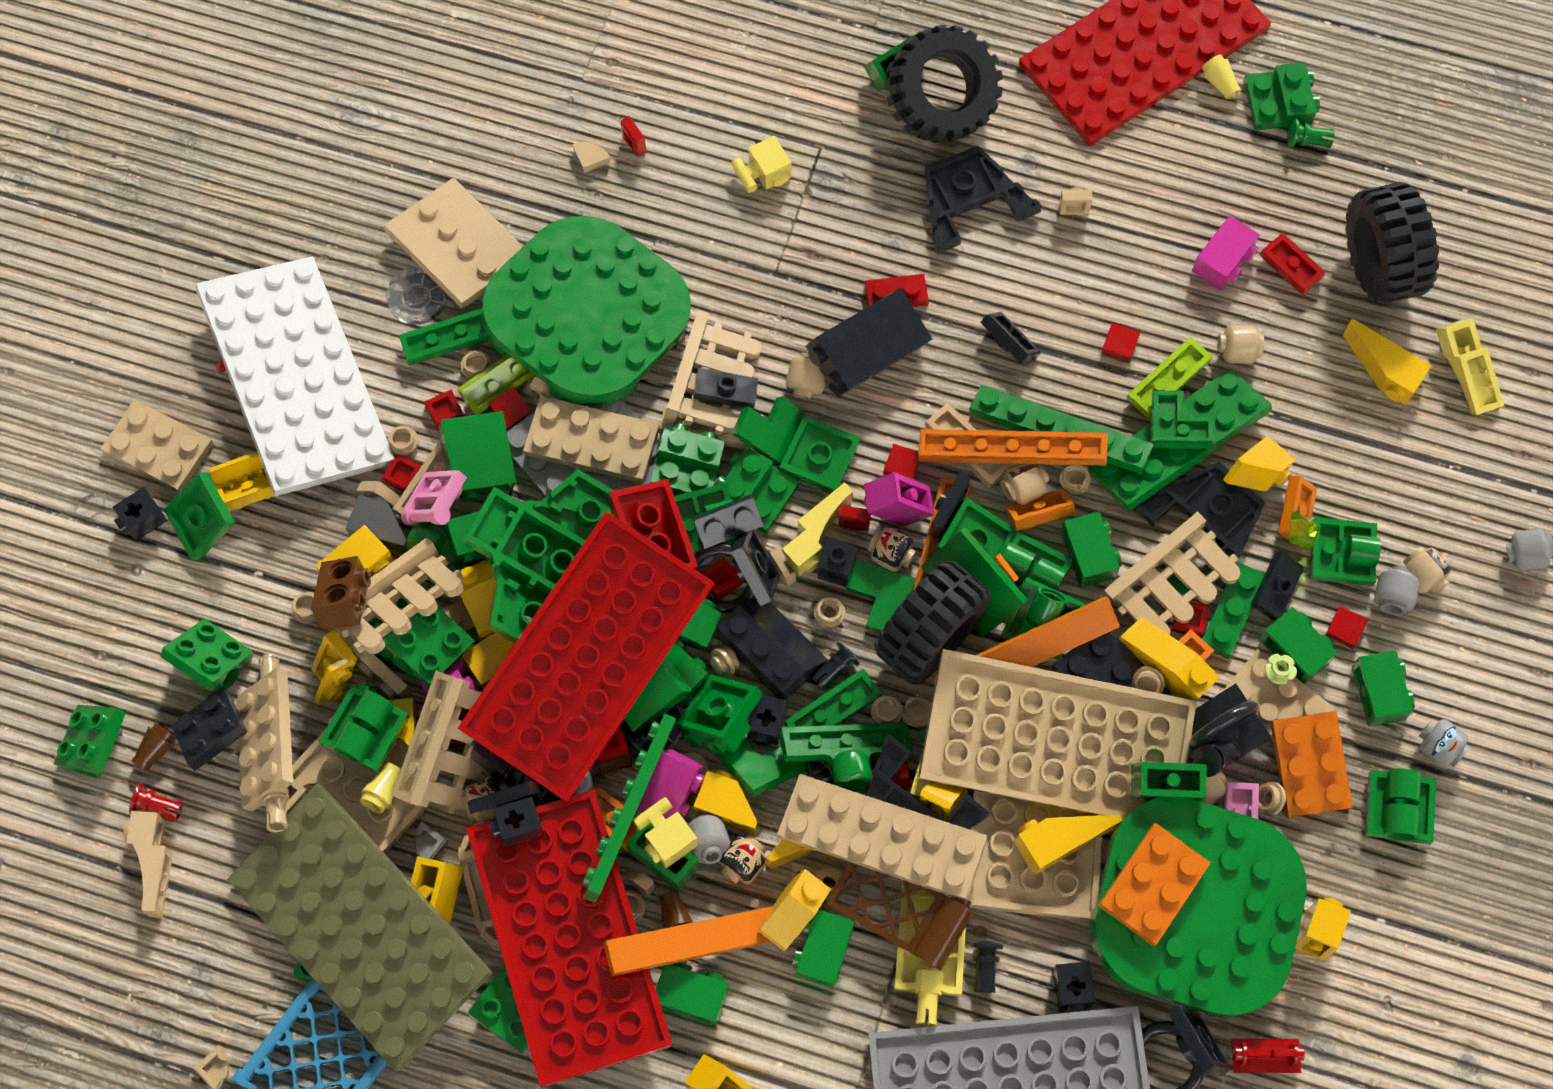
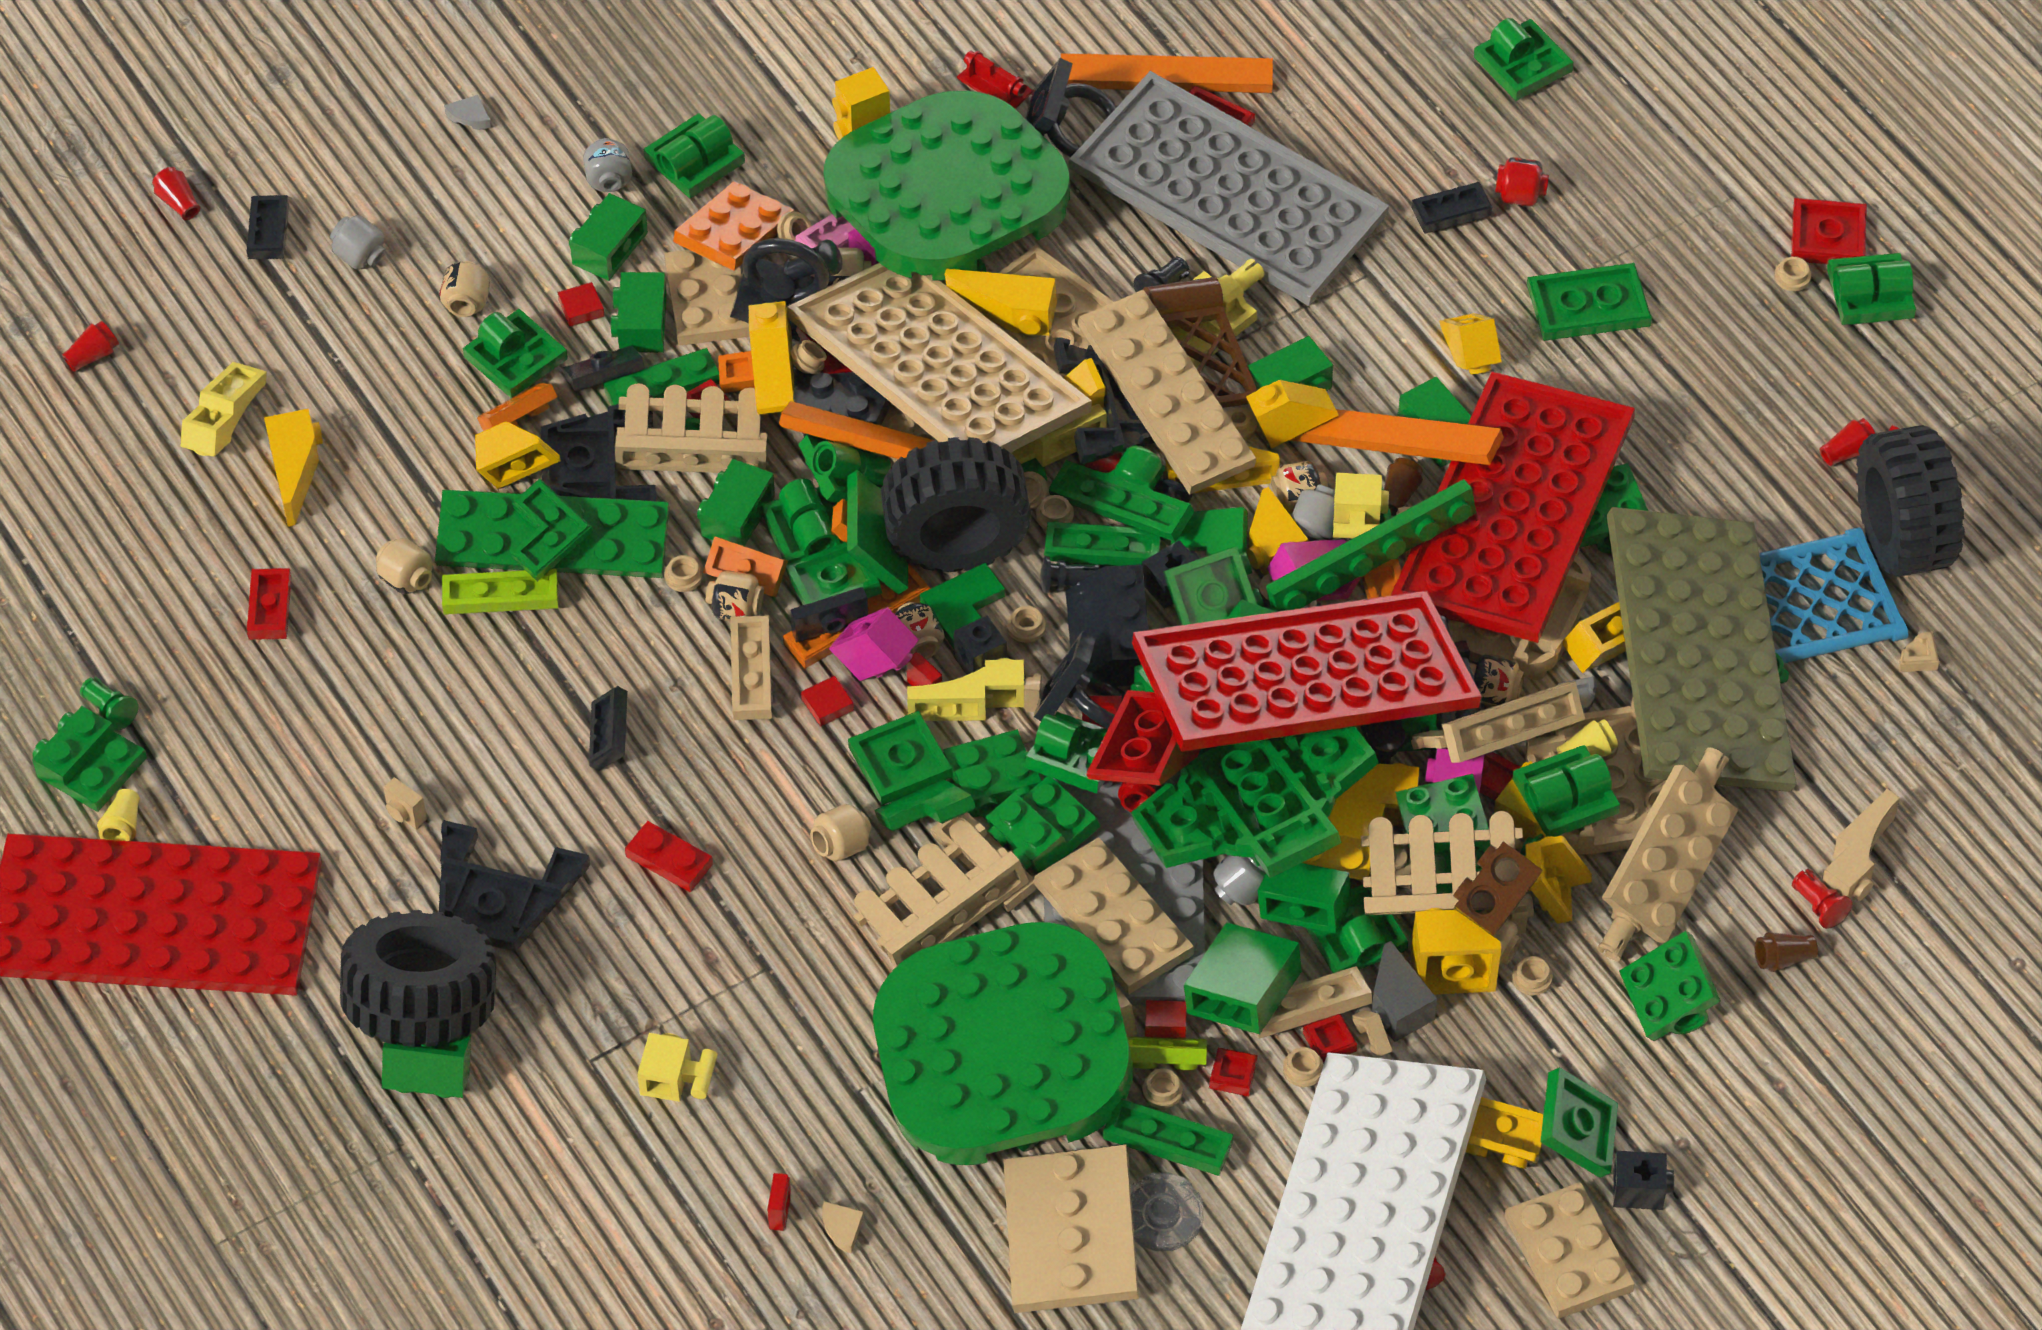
camera: 140 degrees left, 15 degrees down
(89, 739) = (1844, 990): green plate -> none
(208, 728) = (1720, 912): black plate -> none
(433, 488) = (1314, 949): bright pink plate -> none
(503, 797) = (1482, 630): black plate -> none
(525, 813) = (1488, 594): black brick -> none
(725, 388) = (938, 858): black plate -> none
(727, 521) = (1074, 714): plate -> none
(868, 342) = (757, 799): black brick -> none
(1013, 447) = (721, 614): orange tile -> none
(1028, 416) = (654, 612): green plate -> none
(1081, 976) = (1106, 212): black brick -> none
(1120, 342) = (506, 657): red tile -> none
(1154, 884) = (975, 196): orange plate -> none
(1168, 780) = (881, 258): green brick -> none
(1226, 252) = (319, 654): dark pink brick -> none
(1277, 676) = (682, 297): yellowish green plate -> none
(1303, 531) = (534, 378): clear neon green slope -> none
(1392, 242) = (182, 511): black tyre -> none
(1397, 590) = (509, 288): light grey head -> none

